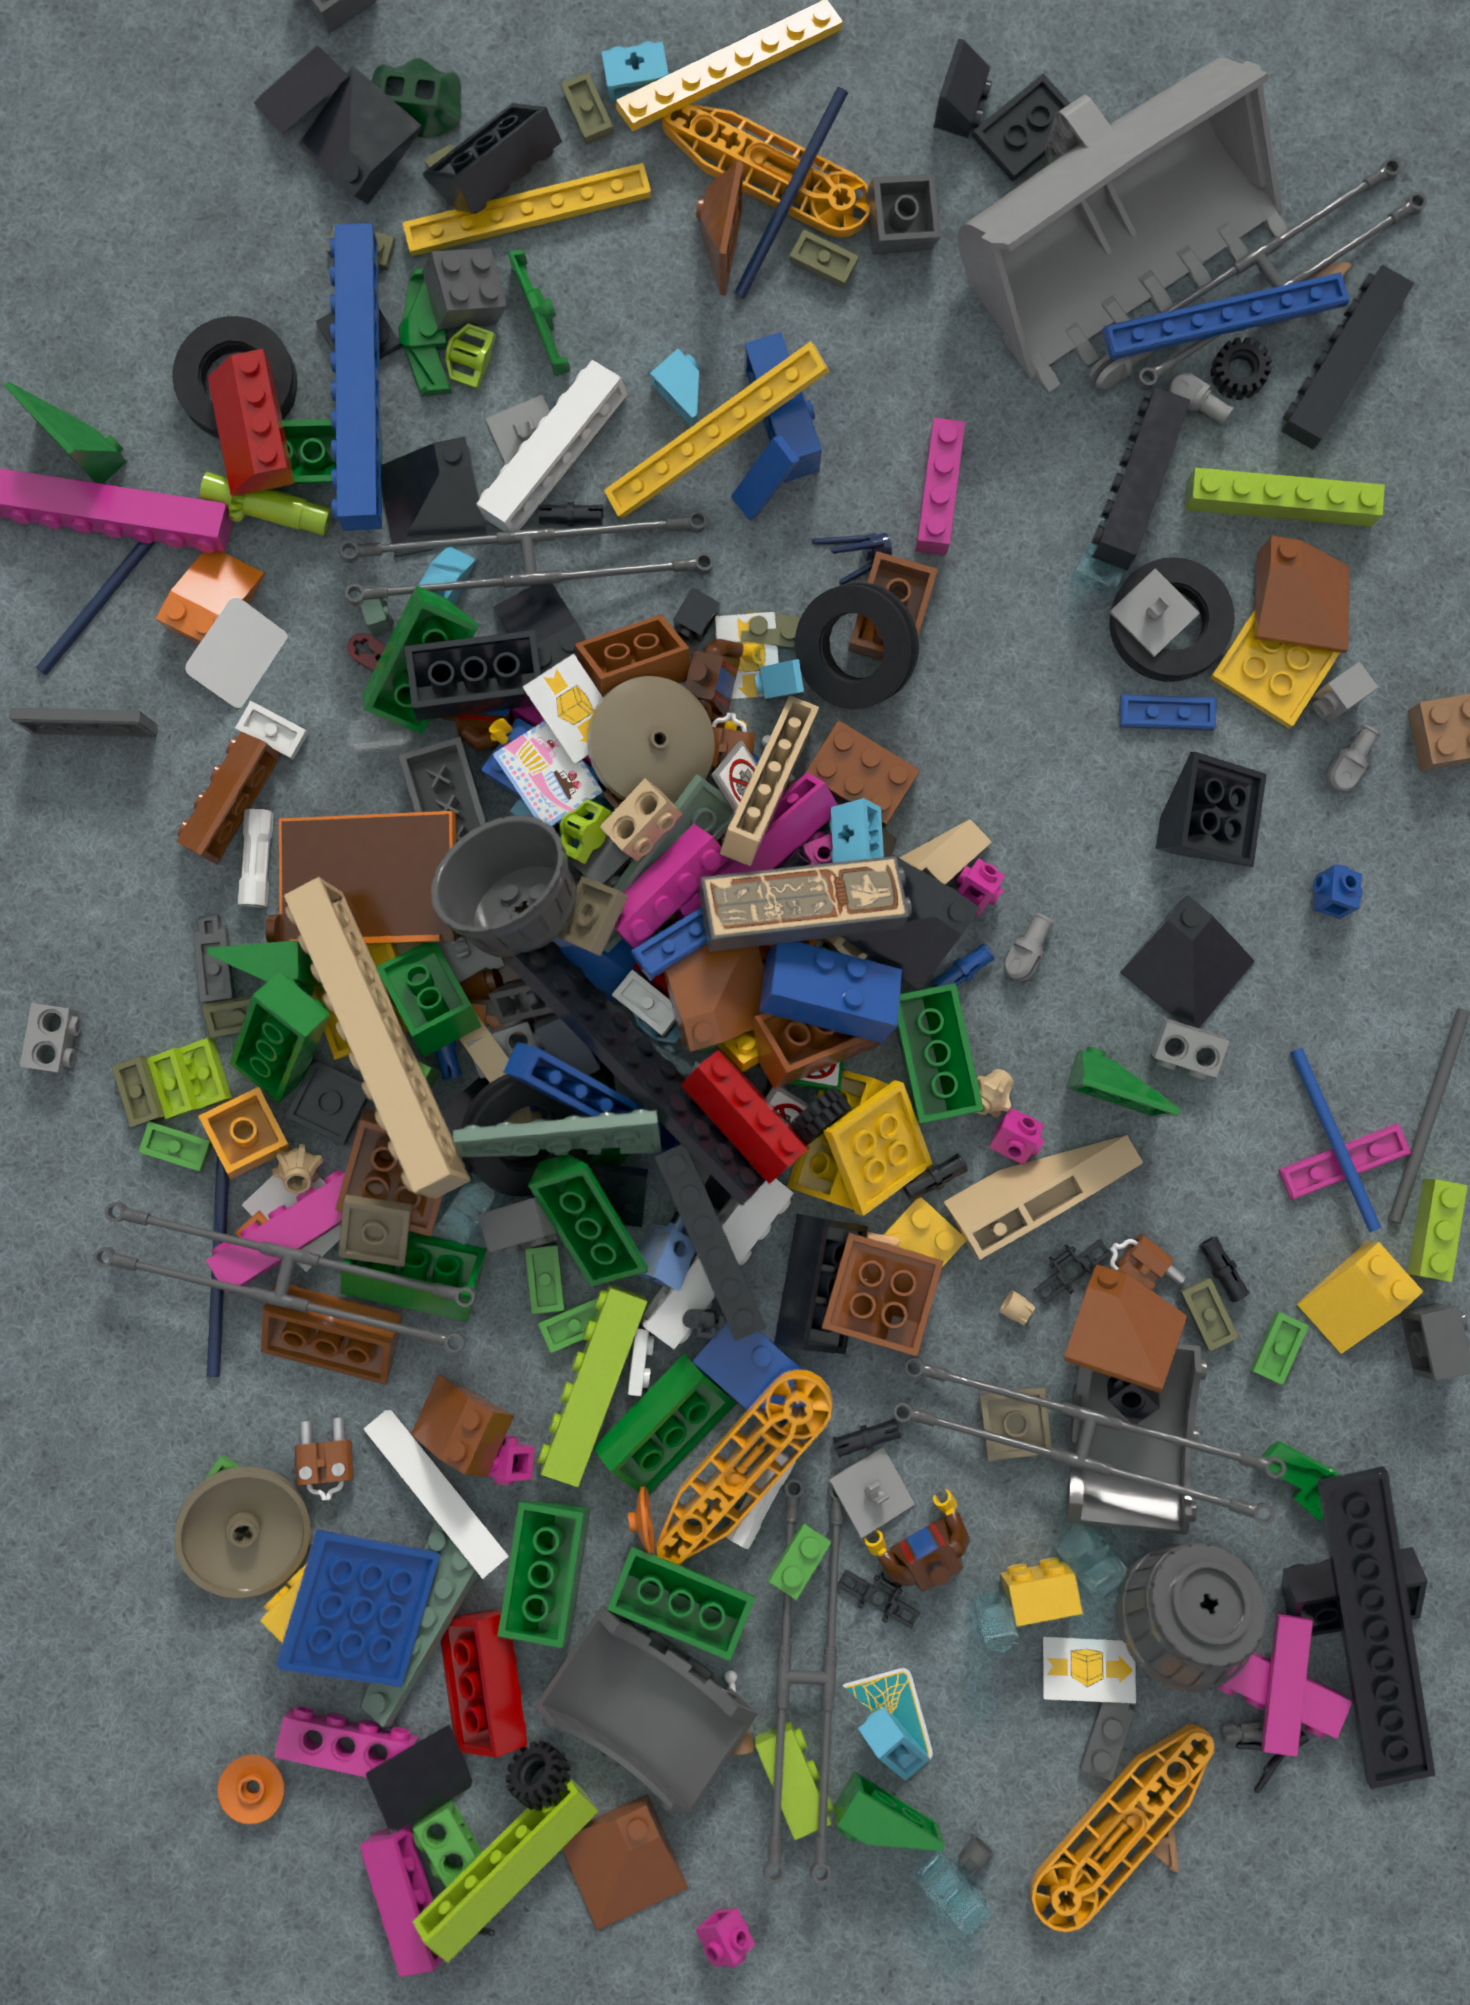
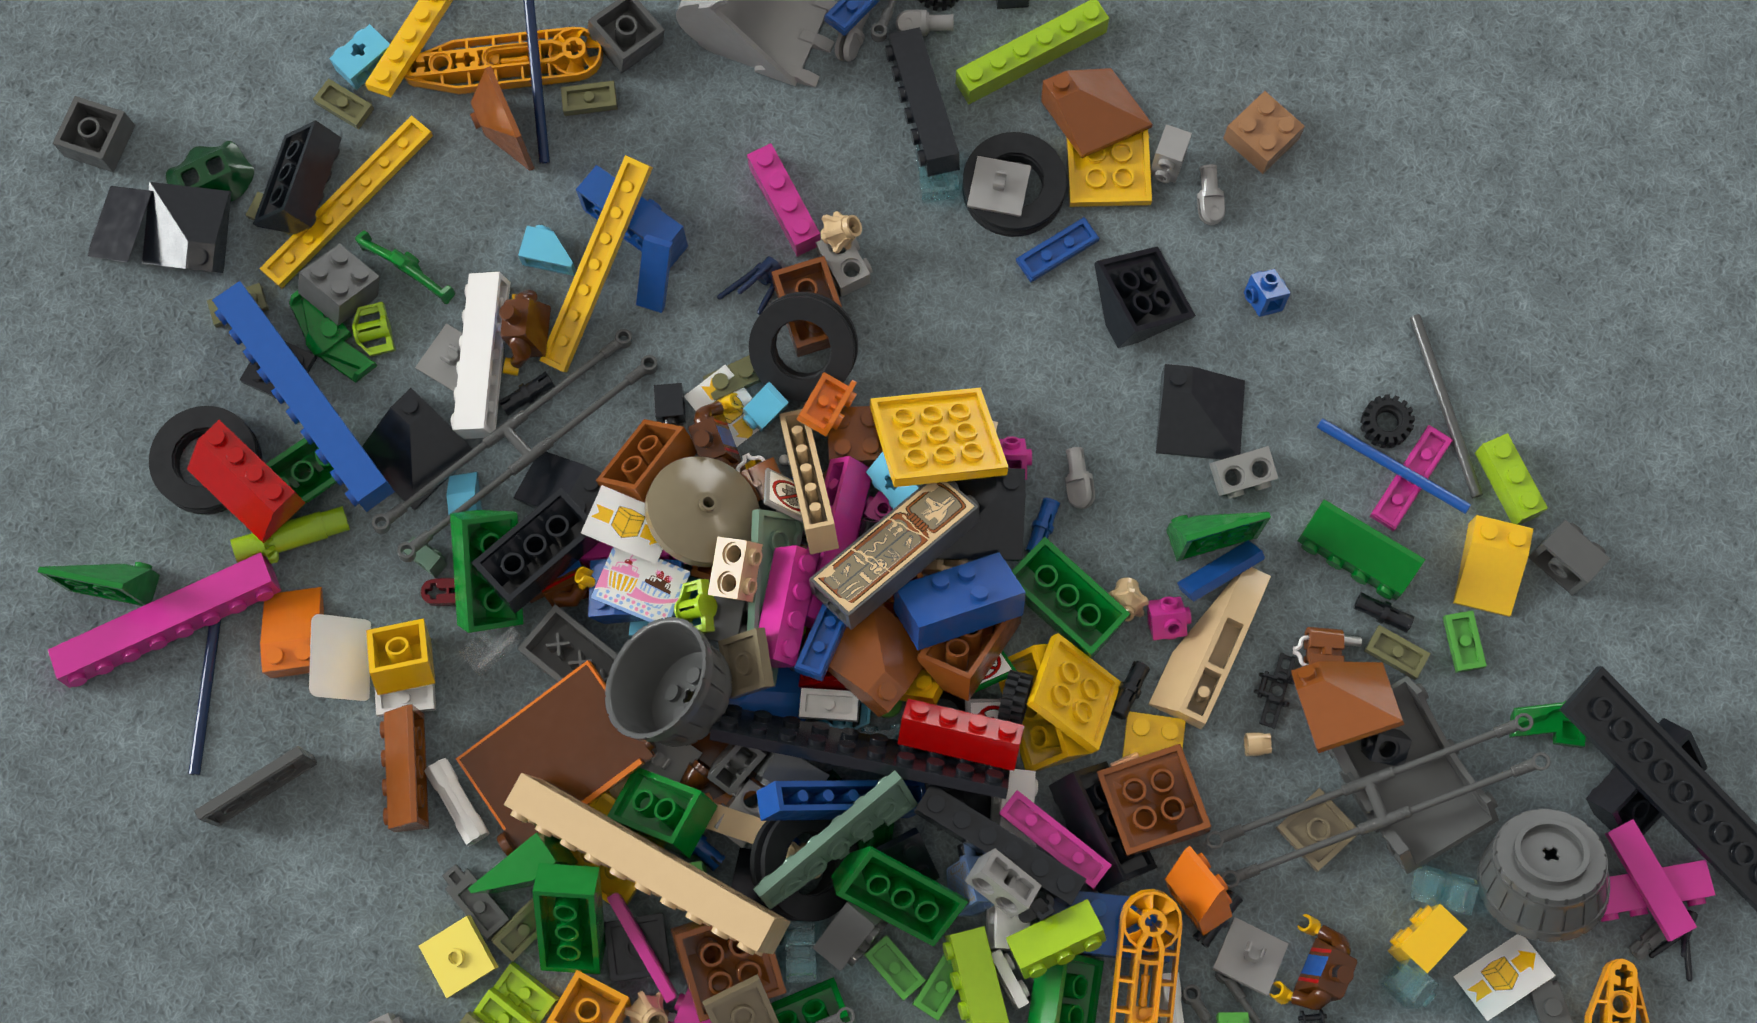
camera: 30 degrees left, 10 degrees down
(166, 999) = (458, 956): none -> light yellow plate
(289, 689) = (400, 656): none -> yellow brick
(330, 1107) = (643, 947): none -> dark pink tile
(607, 449) = (524, 329): none -> reddish brown torso
(687, 1278) = (1003, 883): none -> light grey brick
(701, 1361) = (1056, 939): none -> lime brick
(765, 1269) = (1054, 838): none -> dark pink plate
(838, 716) = (826, 403): none -> orange bracket
(864, 1405) = (1199, 891): none -> orange slope
(919, 822) = (938, 437): none -> yellow plate
(948, 586) = (841, 263): none -> light grey brick
(969, 555) = (840, 230): none -> tan rock
(1100, 1125) = (1221, 570): none -> blue tile
(1243, 1198) = (1360, 550): none -> green slope
(1380, 1093) = (1392, 406): none -> black tyre

